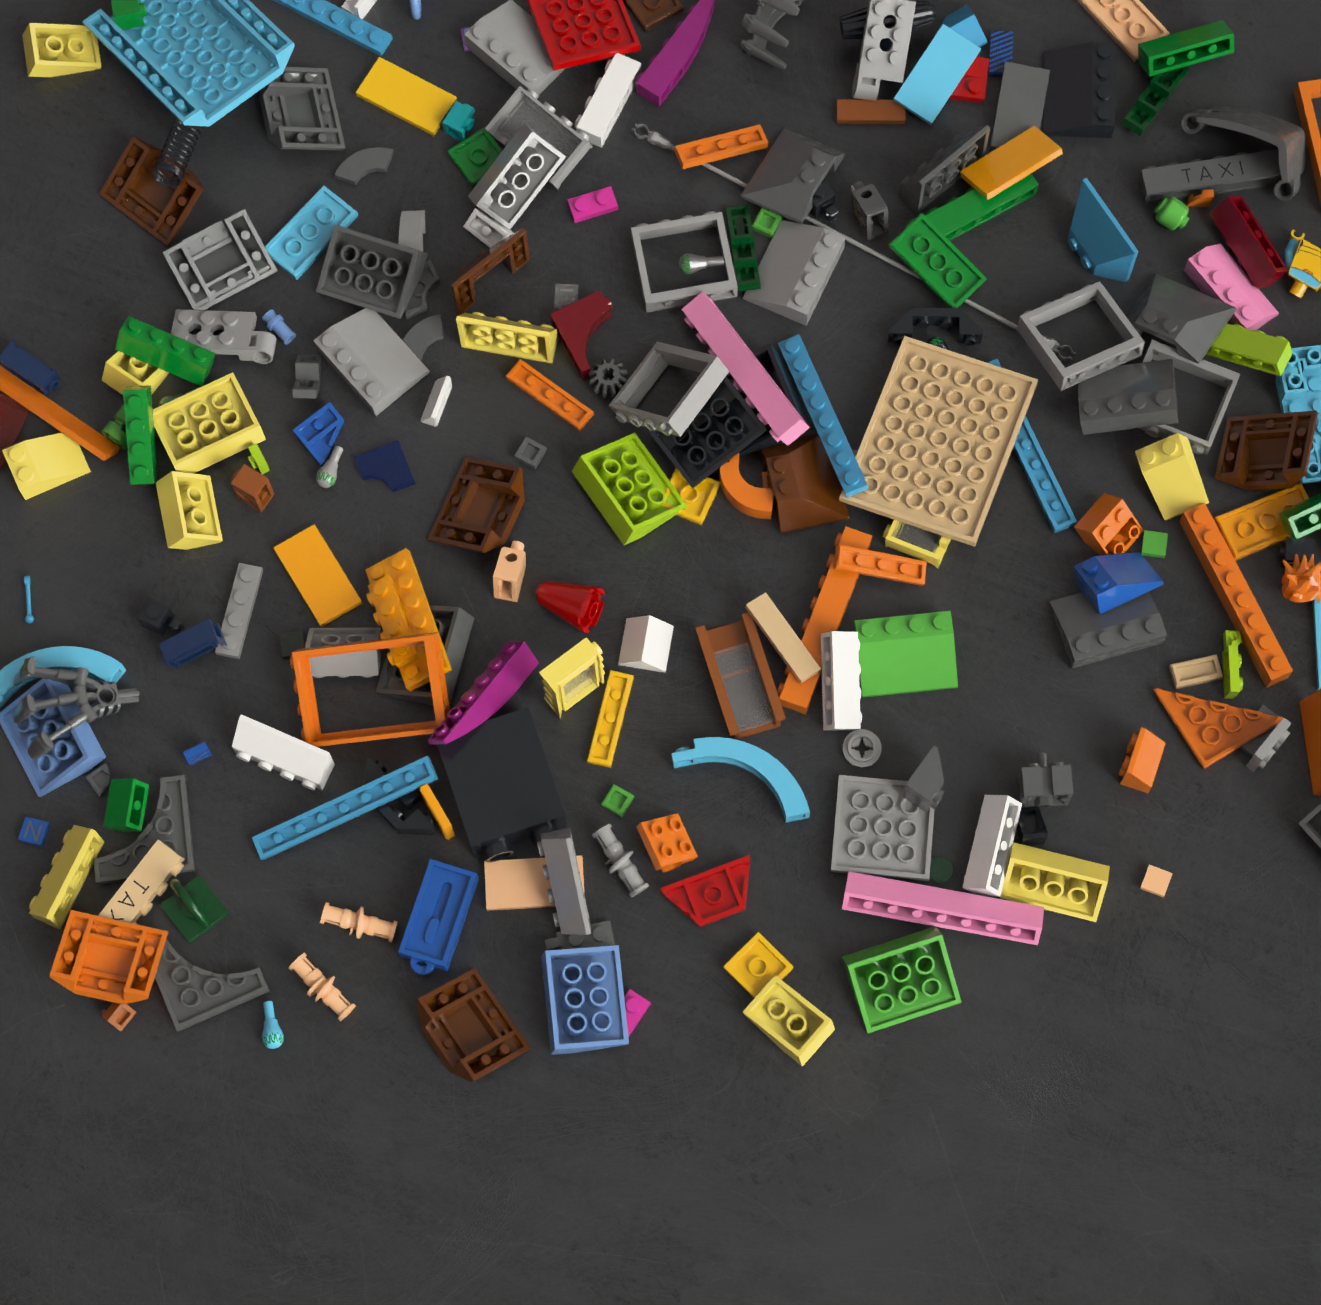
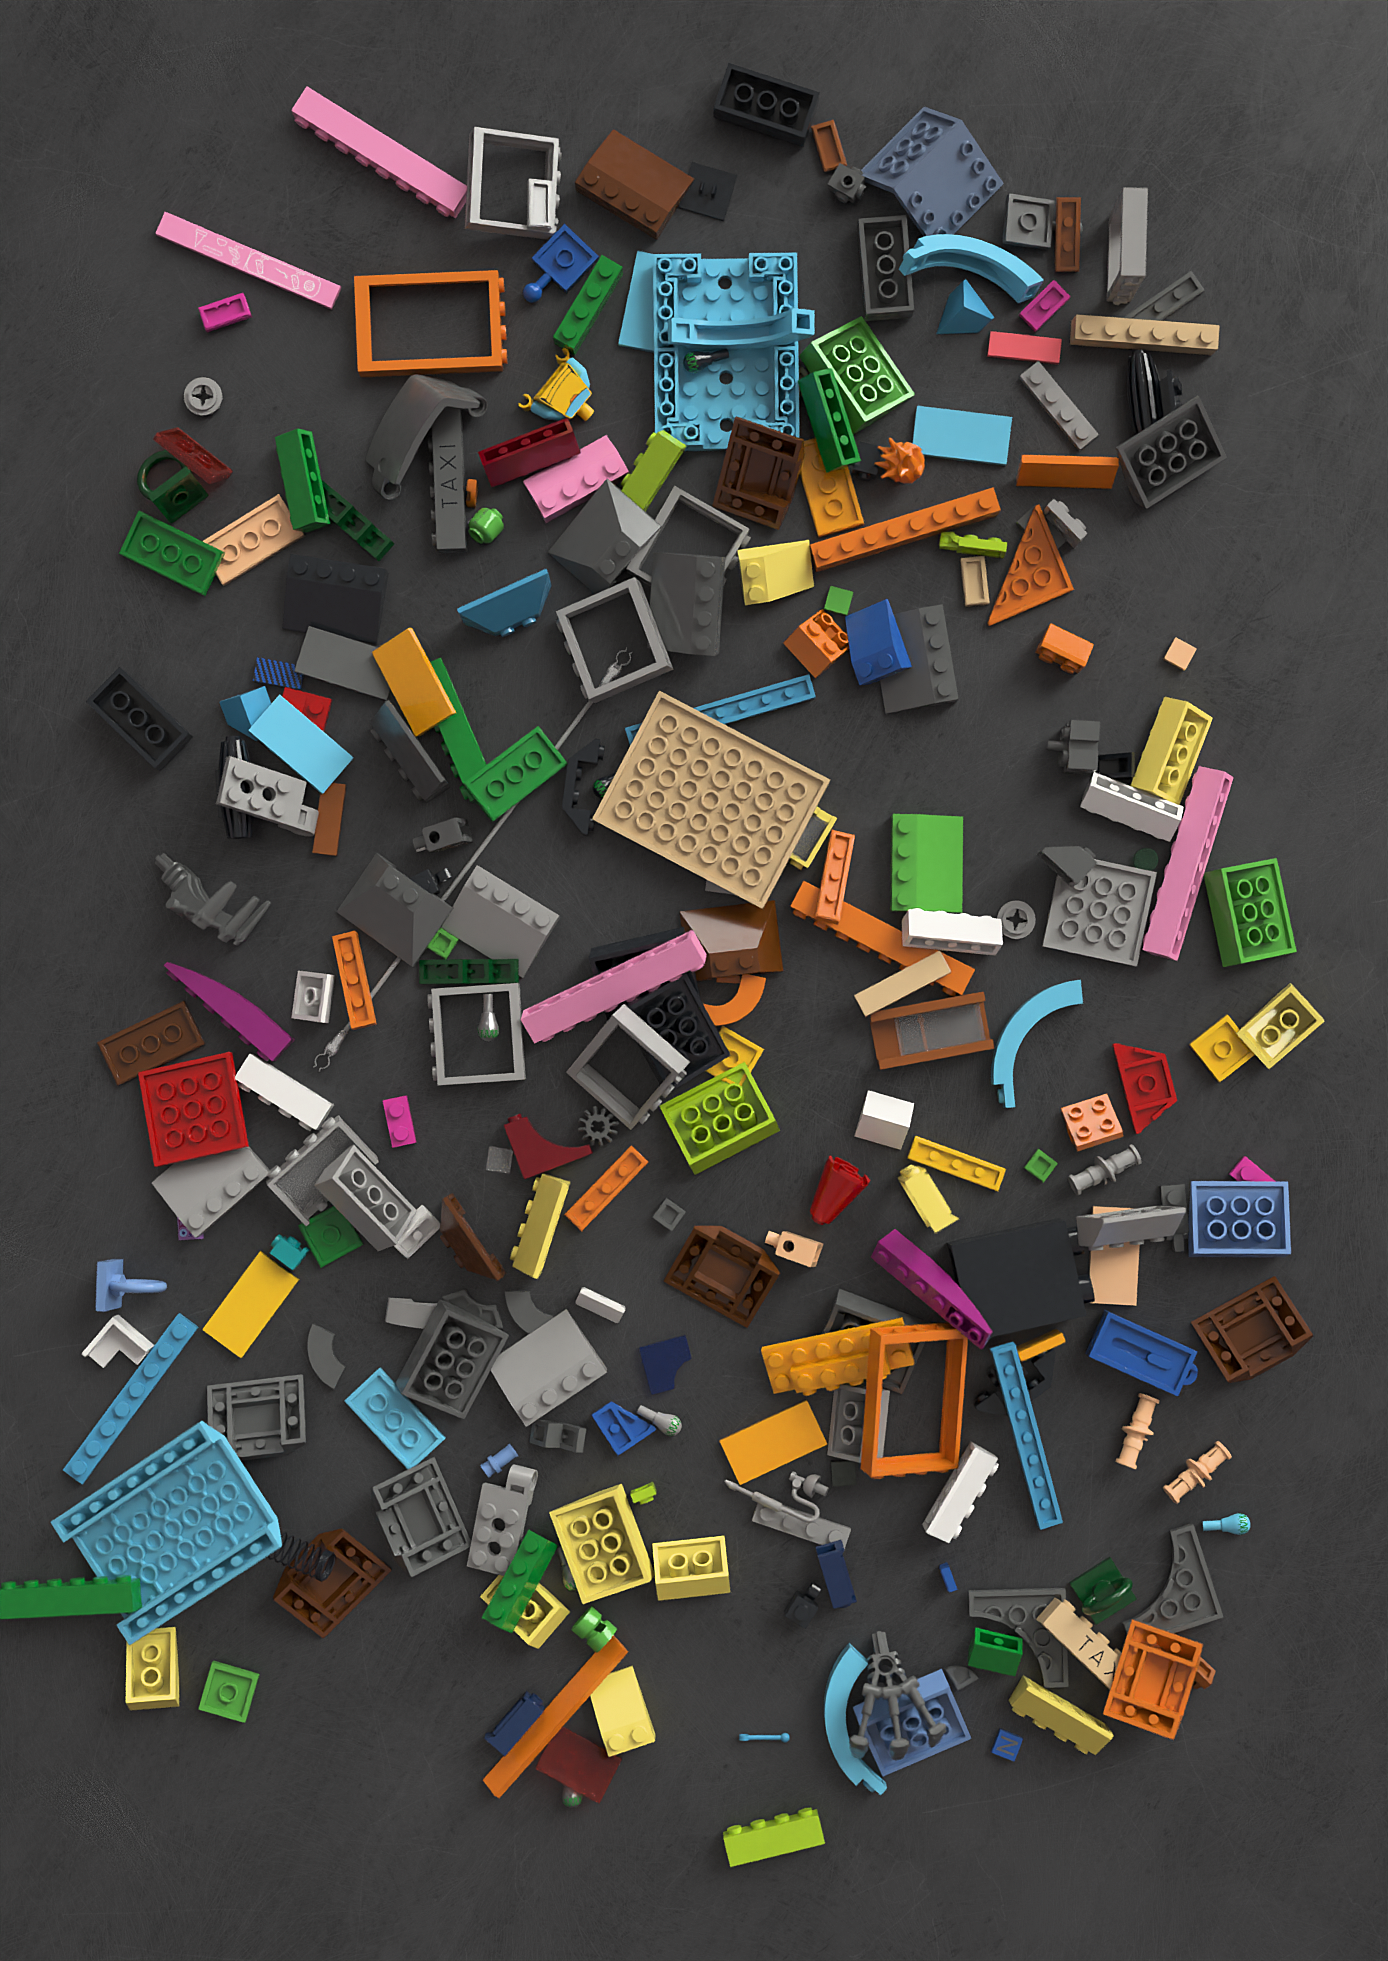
camera: 90 degrees left, 15 degrees up
(44, 117) = (229, 1691): none -> bright green plate
(140, 434) = (611, 1613): green brick -> none
(252, 488) = (678, 1502): dark orange brick -> none
(278, 613) = (810, 1486): none -> light grey piece
(700, 118) = (313, 996): none -> white slope
(823, 416) = (669, 913): dark azure plate -> none

